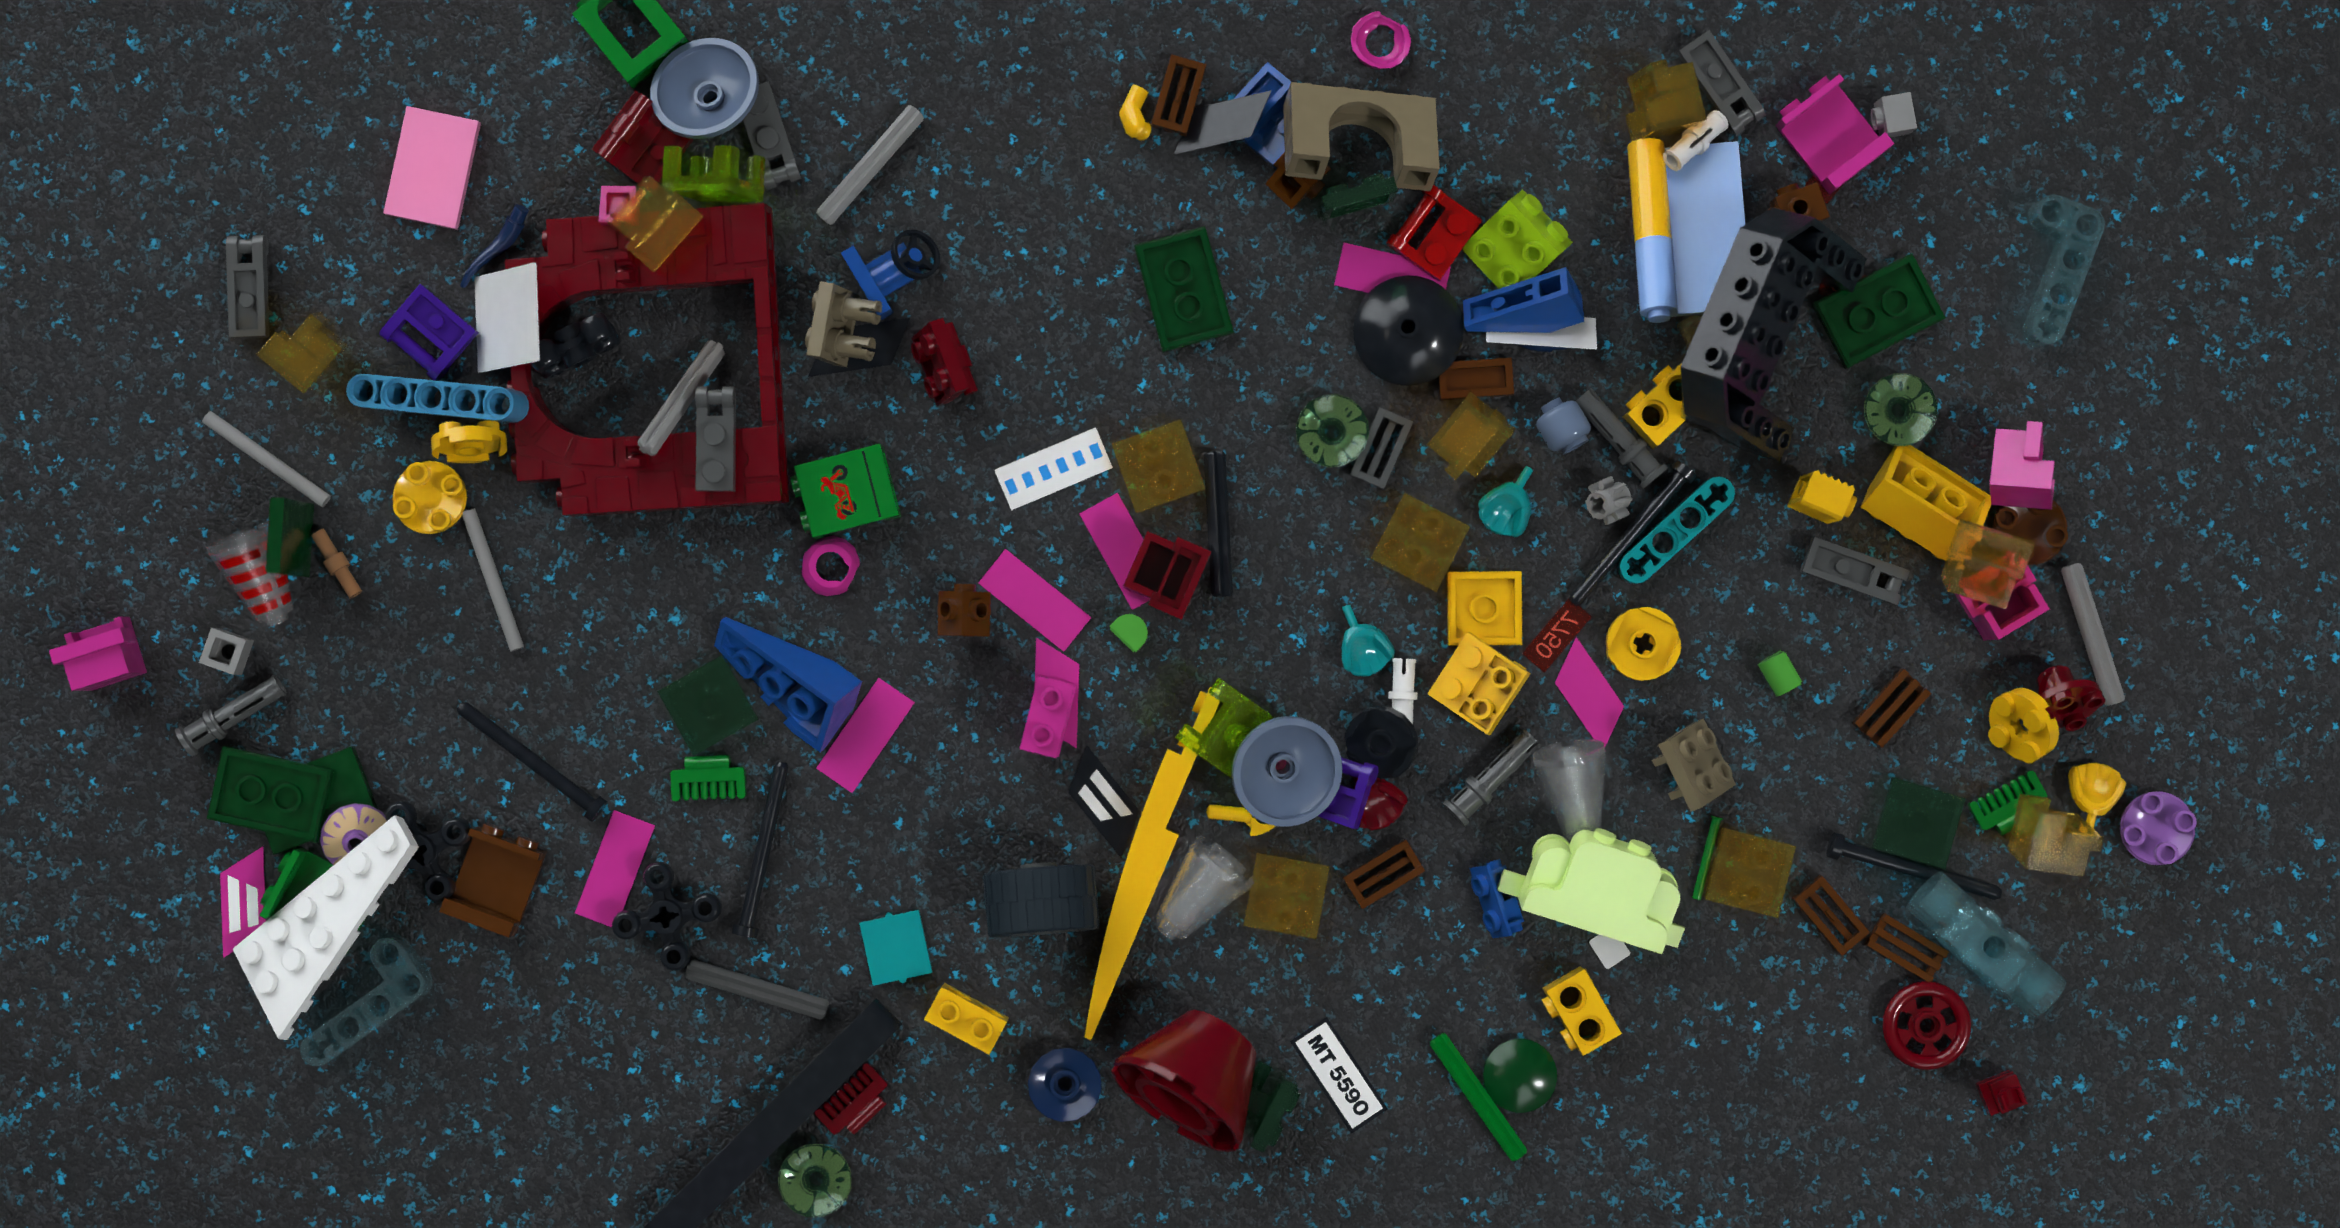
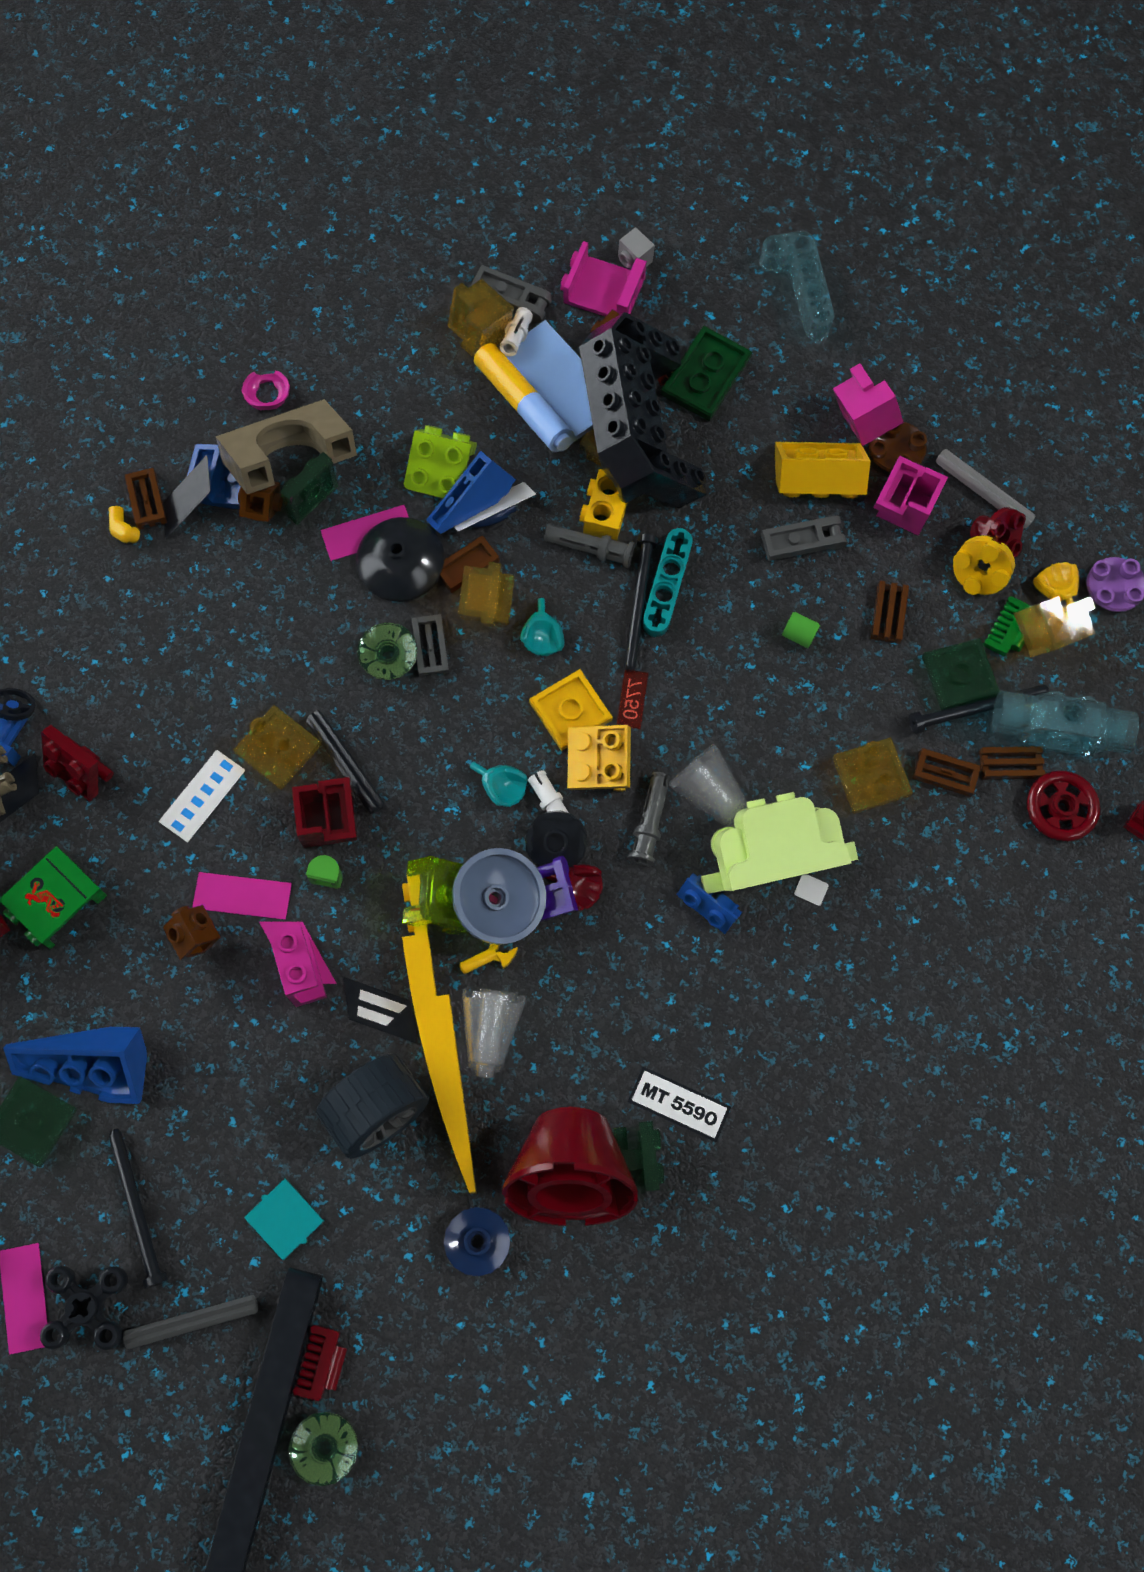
camera: 40 degrees left, 15 degrees down
(705, 770) = (56, 1173): green piece -> none
(810, 558) = (74, 978): dark pink piece -> none
(865, 735) = (168, 1071): dark pink sticker -> none
(966, 1018) = (369, 1237): yellow brick -> none
(1116, 540) = (276, 817): dark pink sticker -> none
(1184, 289) = (225, 621): dark green tile -> none
(1286, 895) = (556, 993): clear yellow plate -> none
(1410, 857) = (606, 959): reddish brown tile -> none
(1420, 542) = (496, 690): clear yellow plate -> none
(1443, 240) = (388, 488): red plate -> none
(1478, 1097) = (790, 1054): green axle -> none
(1520, 1075) = (809, 1019): dark green dish -> none
(1563, 425) = (546, 556): sand blue head -> none
(1587, 1007) = (825, 935): yellow brick -> none
(1589, 693) = (680, 724): dark pink sticker -> none
(1608, 500) = (608, 586): light grey gear -> none
(1663, 637) = (689, 683): yellow plate -> none
(1695, 765) = (786, 721): dark tan plate -> none
(1706, 858) = (835, 784): green piece -> none
(1822, 497) = (750, 498): yellow brick -> none
(1918, 407) = (764, 410): clear green dish -> none
(1985, 563) = (885, 465): clear yellow plate -> none

